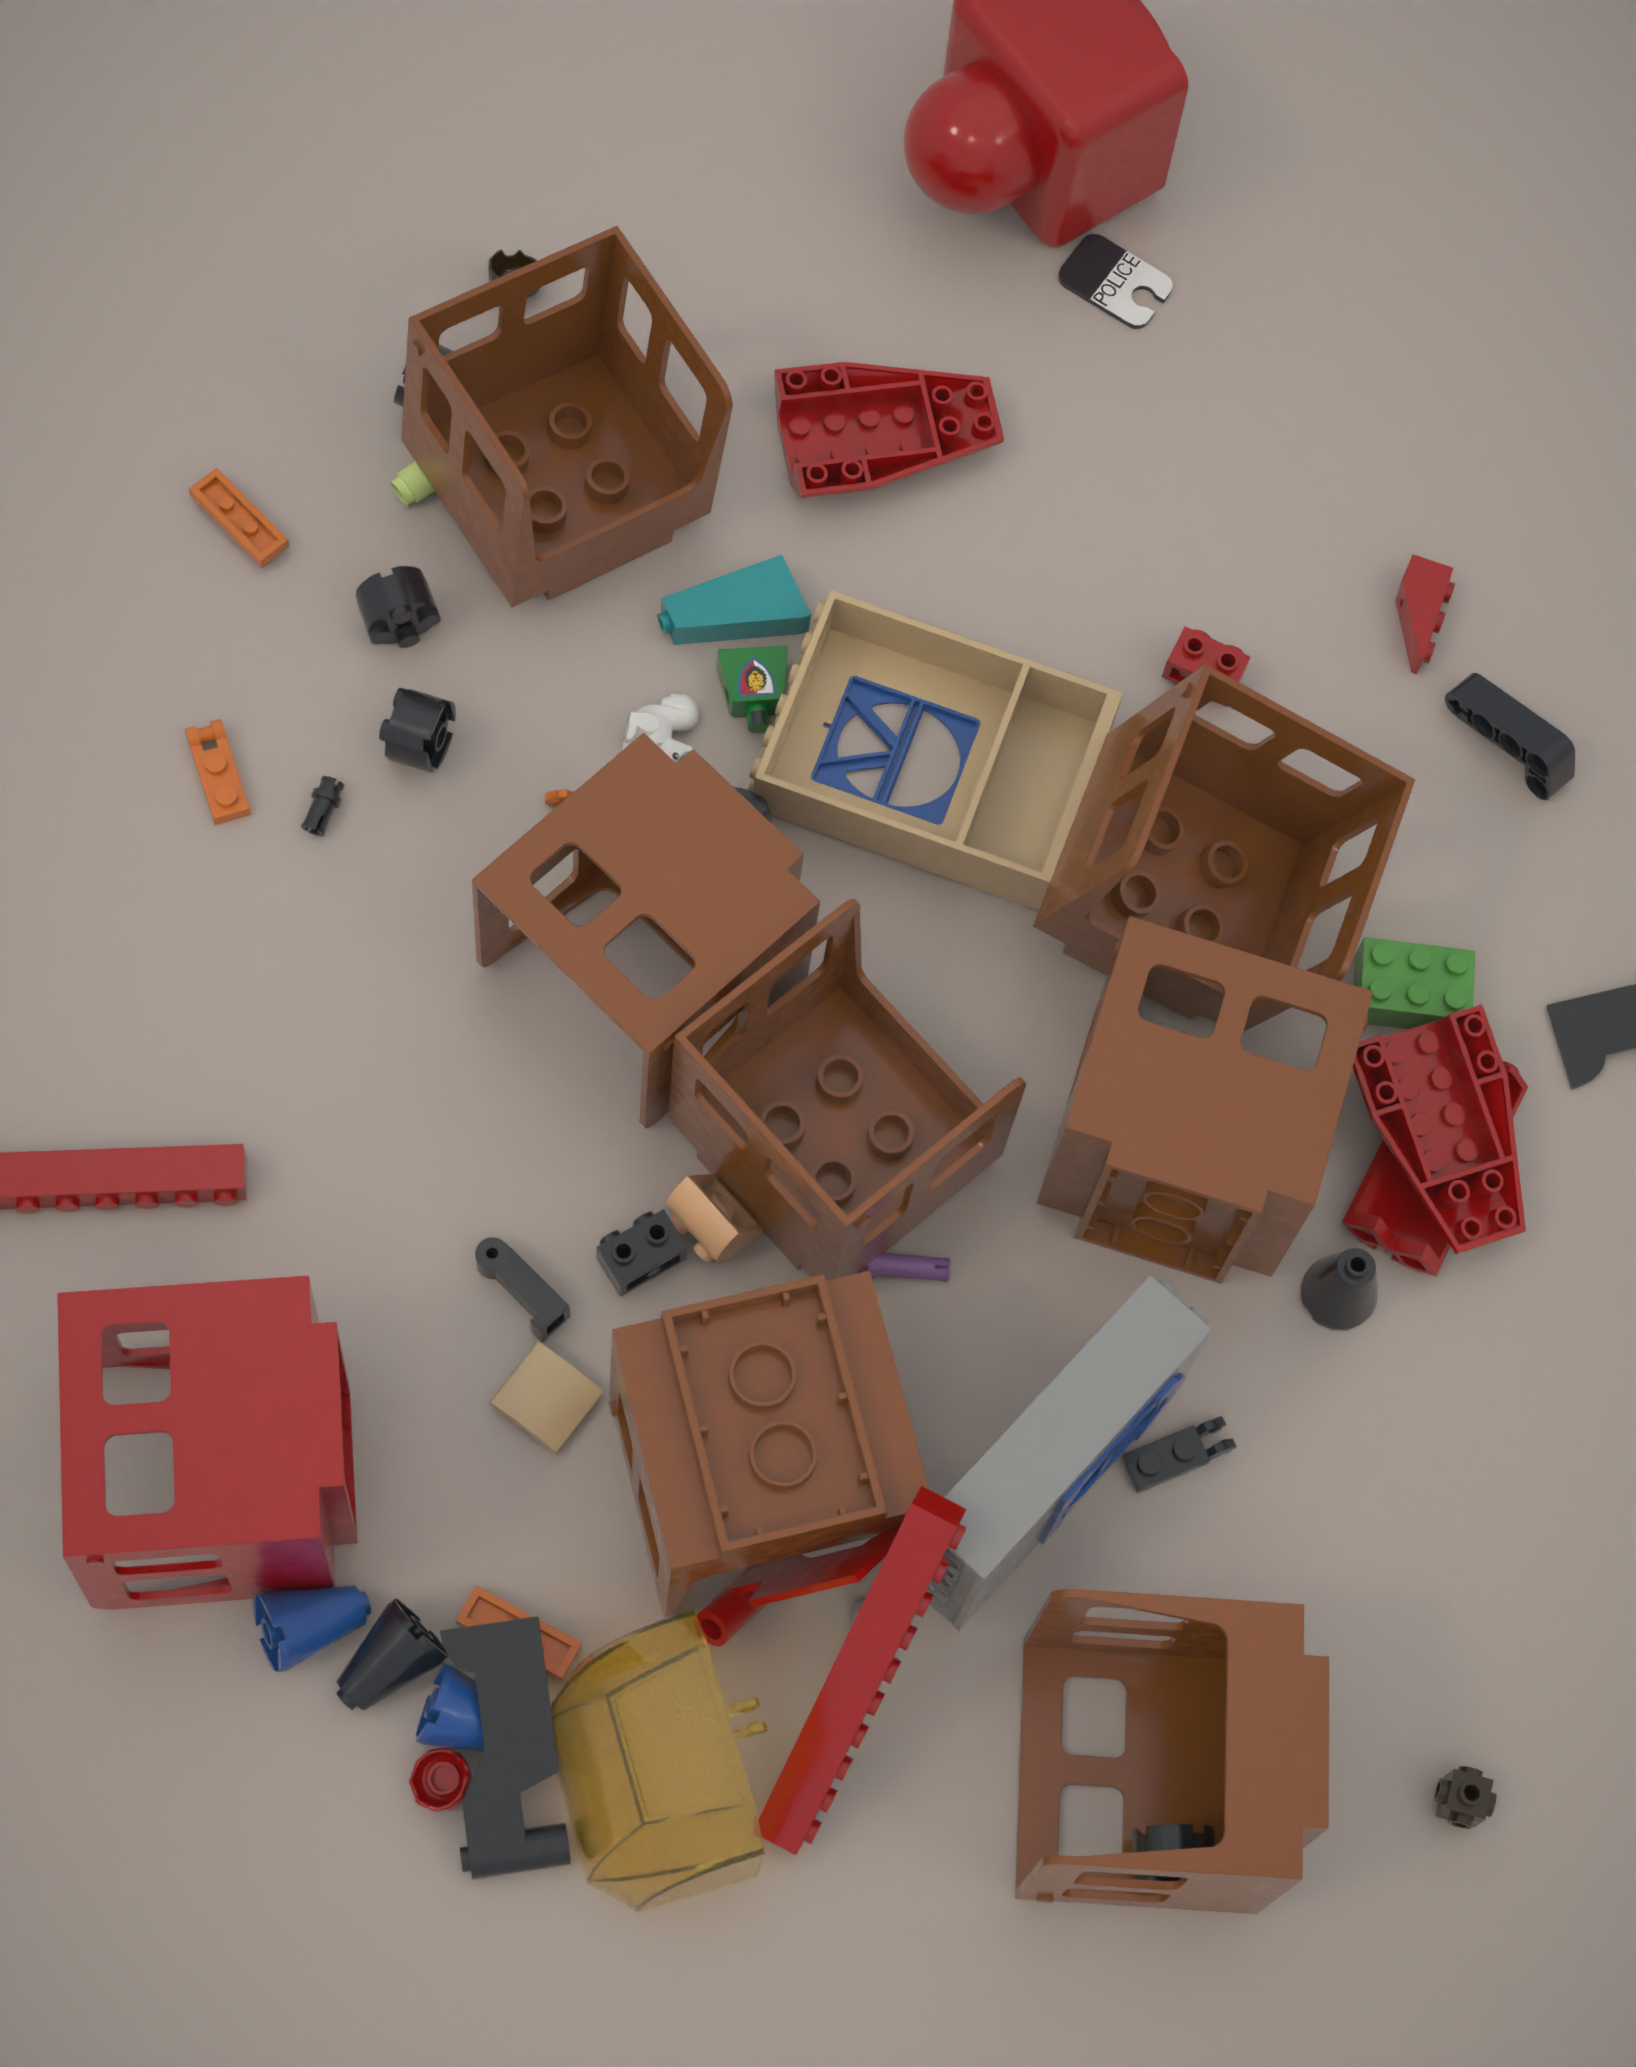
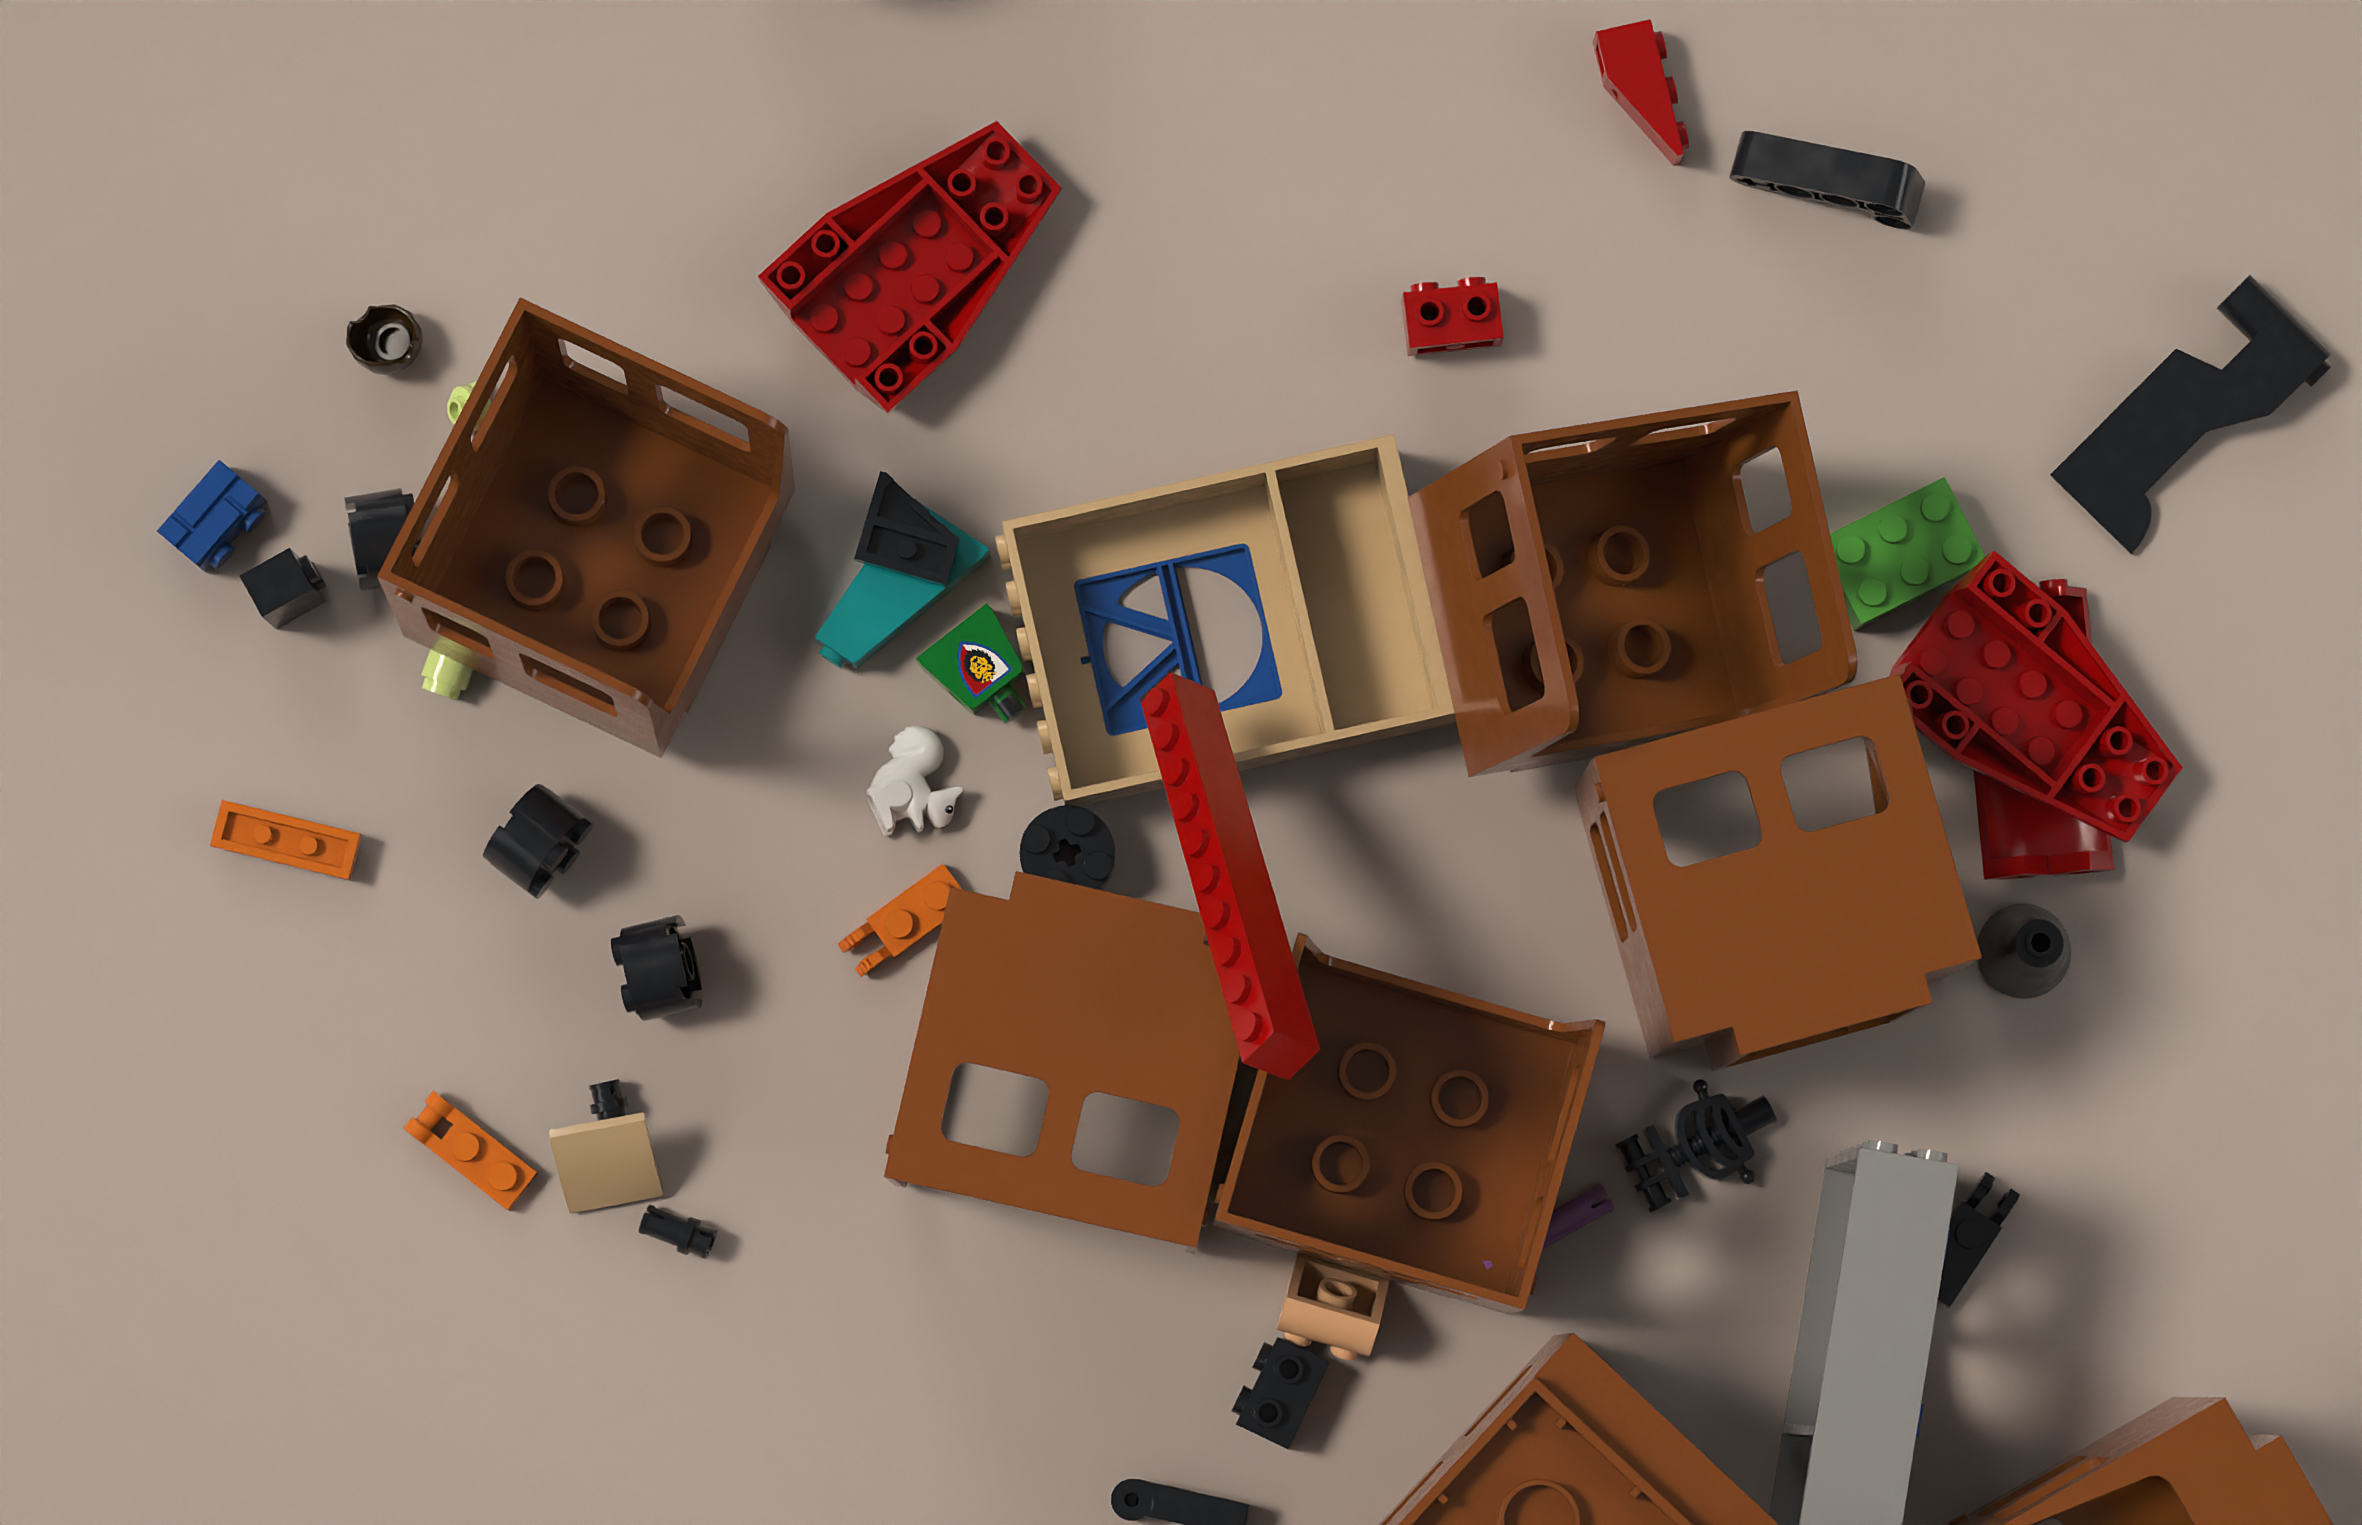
camera: 25 degrees left, 15 degrees up
(298, 825) = (606, 1162): none -> tan slope
(316, 905) = (683, 1233): none -> black pin
(334, 309) = (214, 517): none -> blue brick
(347, 368) = (284, 587): none -> black brick
(761, 570) = (905, 536): none -> black wing
(831, 846) = (1229, 878): none -> red brick
(1071, 1278) = (1738, 1123): none -> black torso

